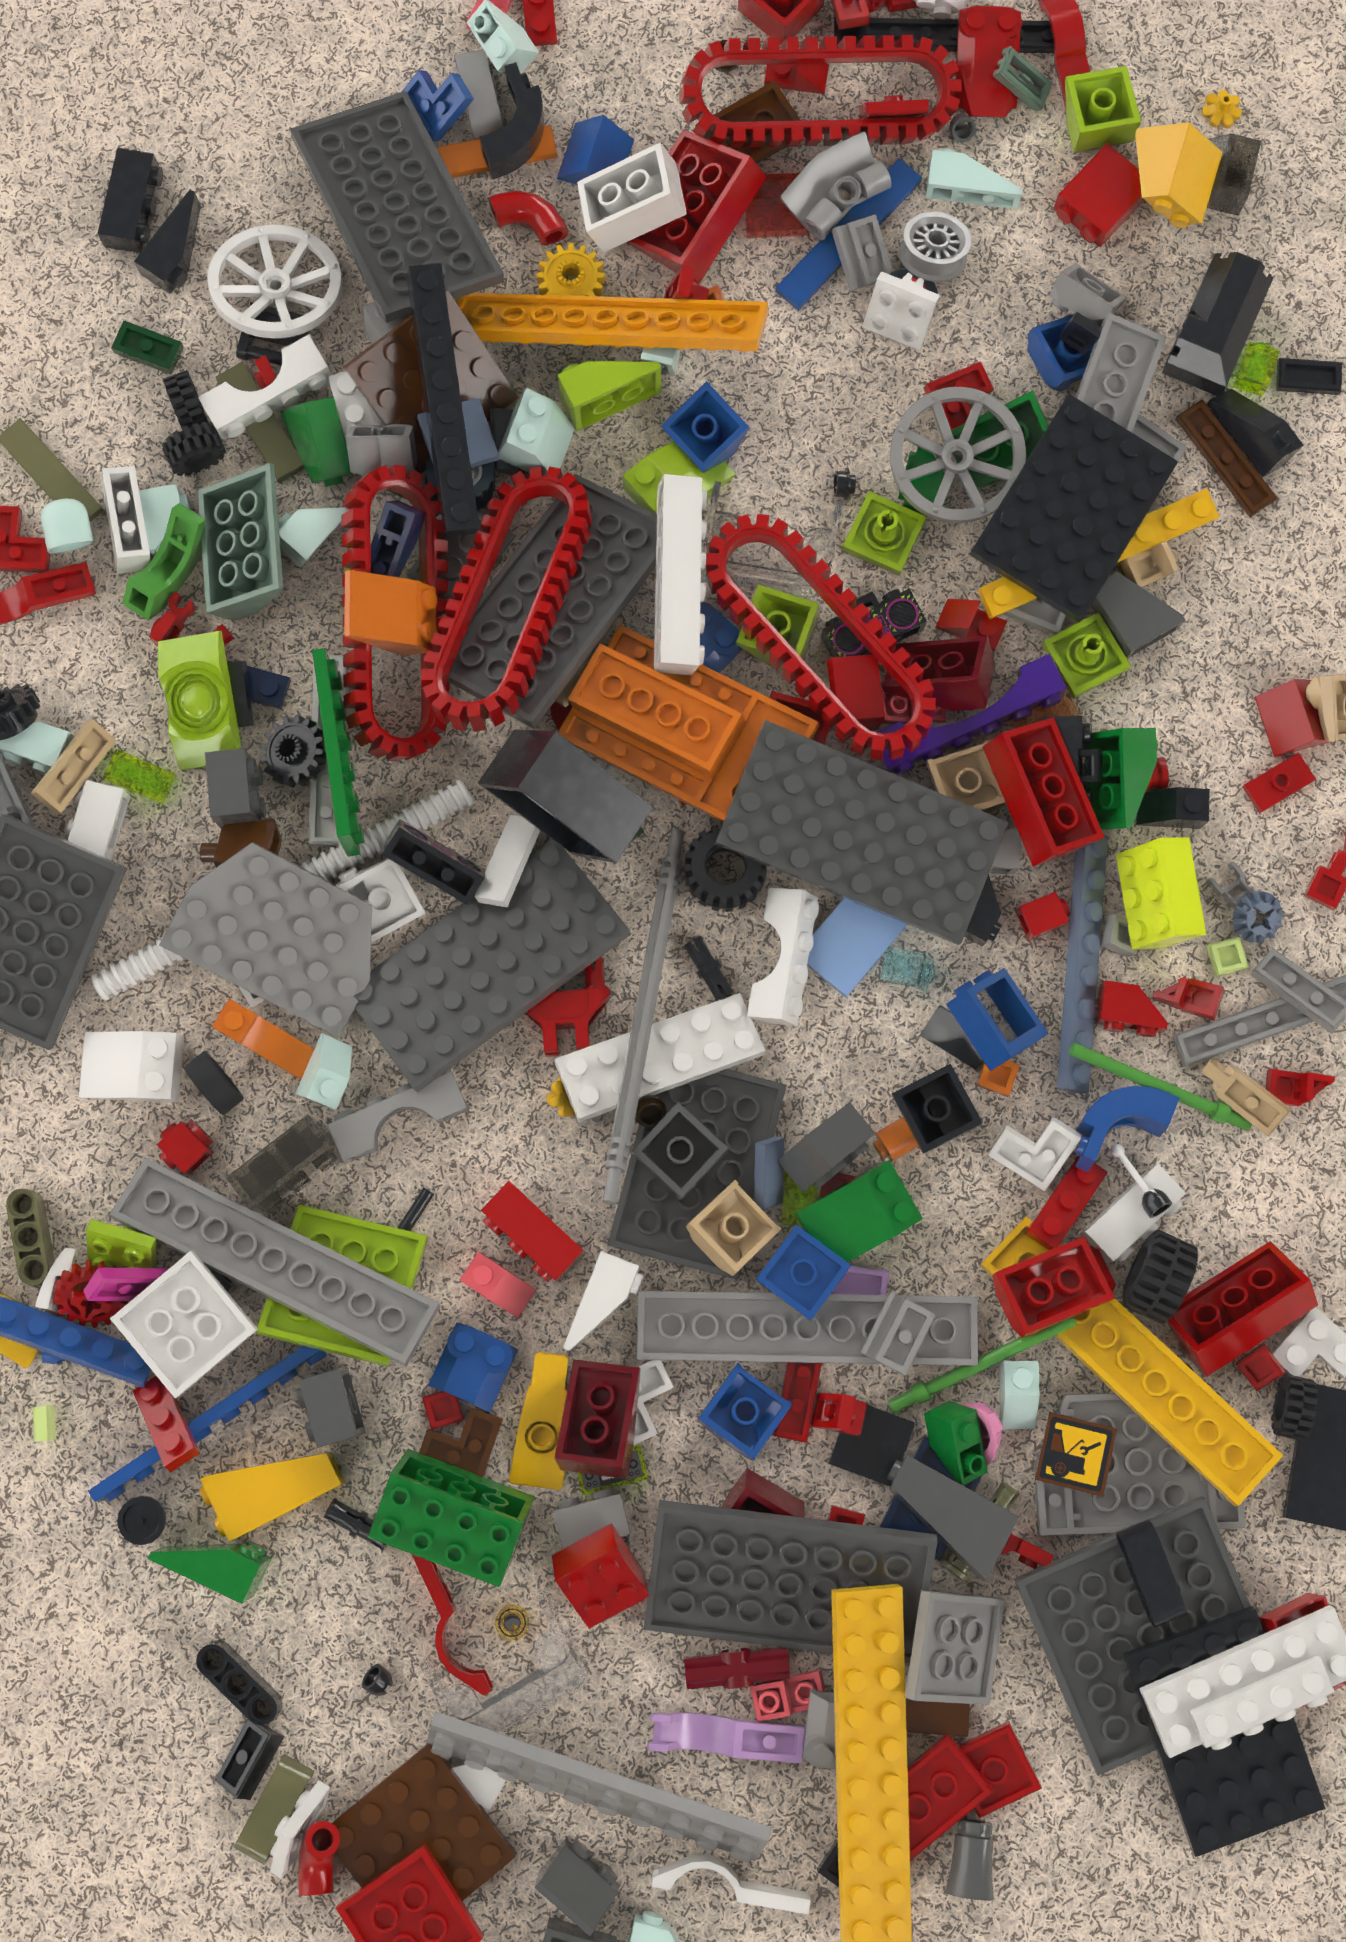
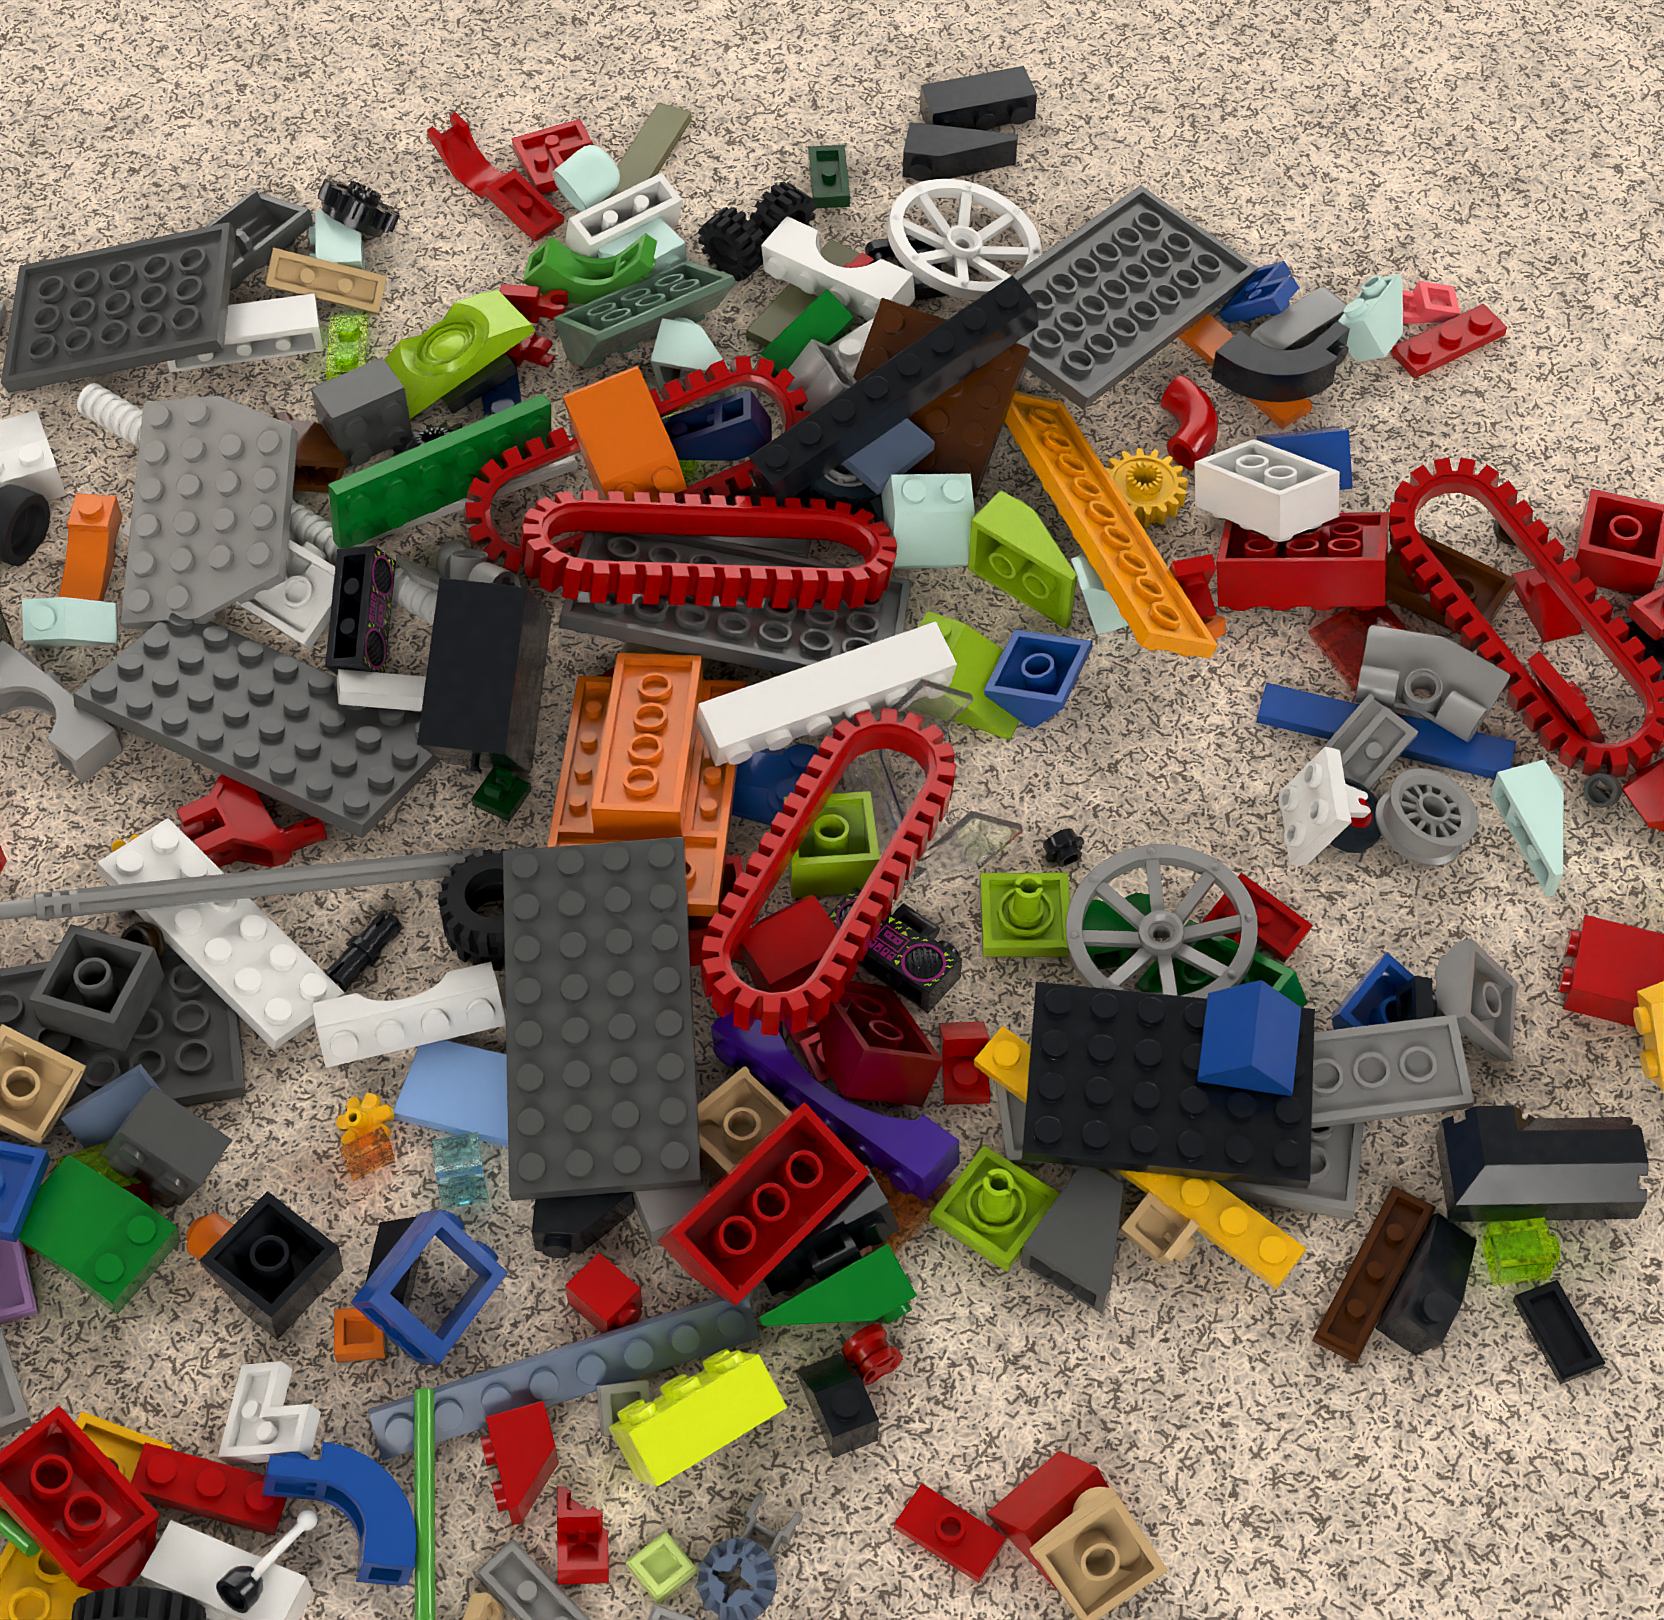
camera: 65 degrees right, 25 degrees down
(433, 782) = (458, 562): none -> light grey panel
(844, 1016) = (364, 1117): none -> yellow plant
(873, 1023) = (367, 1153): none -> clear orange tile
(1079, 445) = (1250, 1039): none -> blue slope

